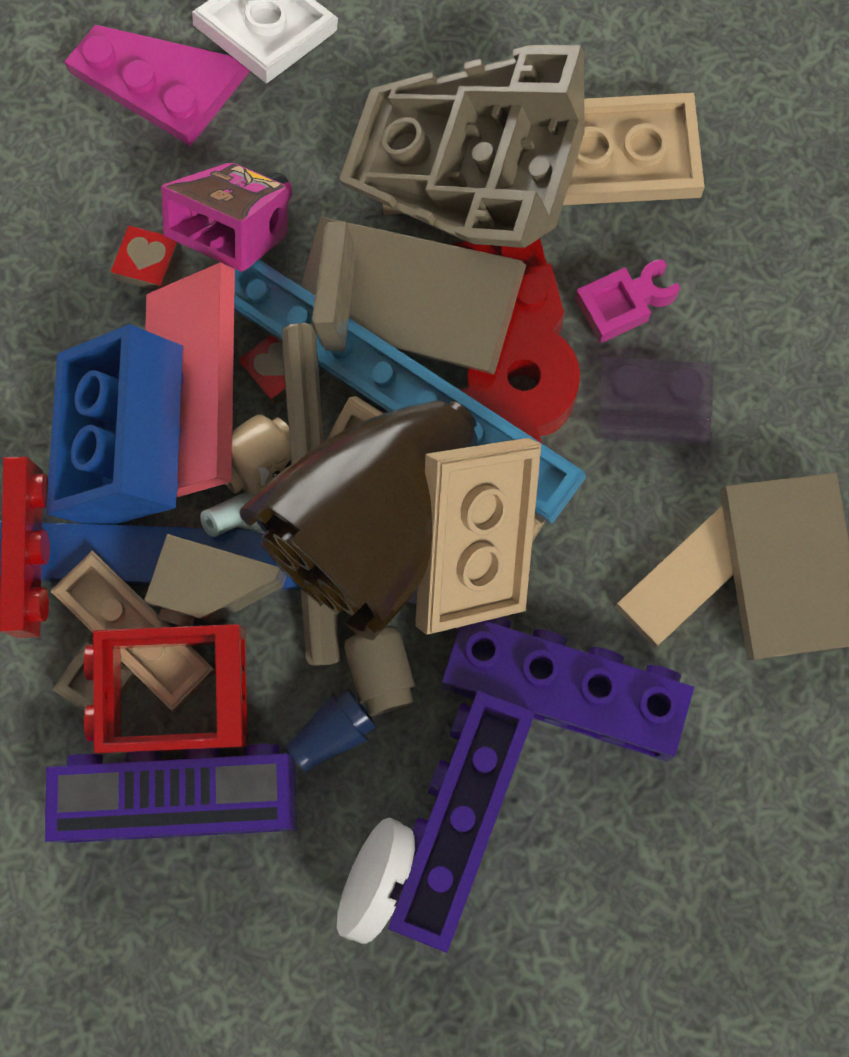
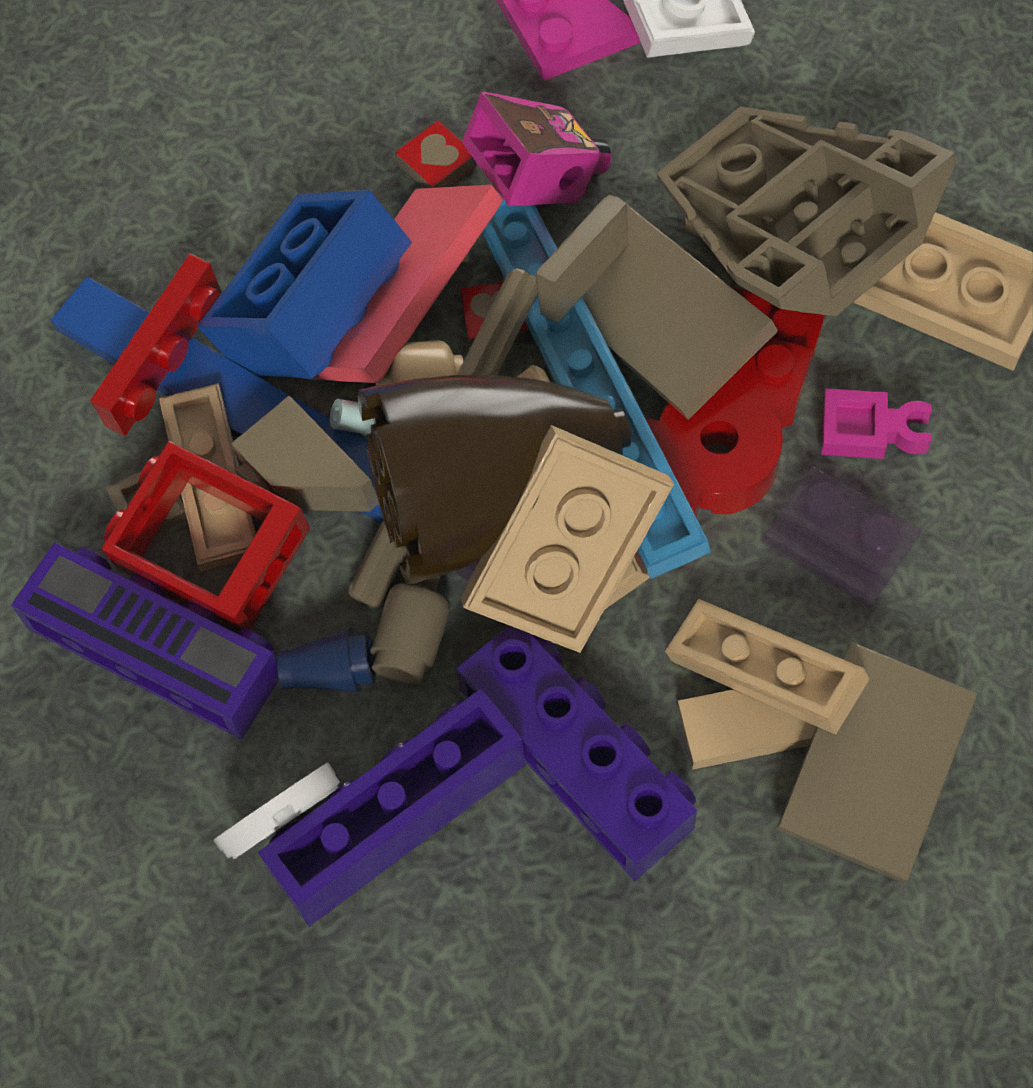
camera: 30 degrees right, 10 degrees down
(671, 539) = (768, 666): none -> tan tile

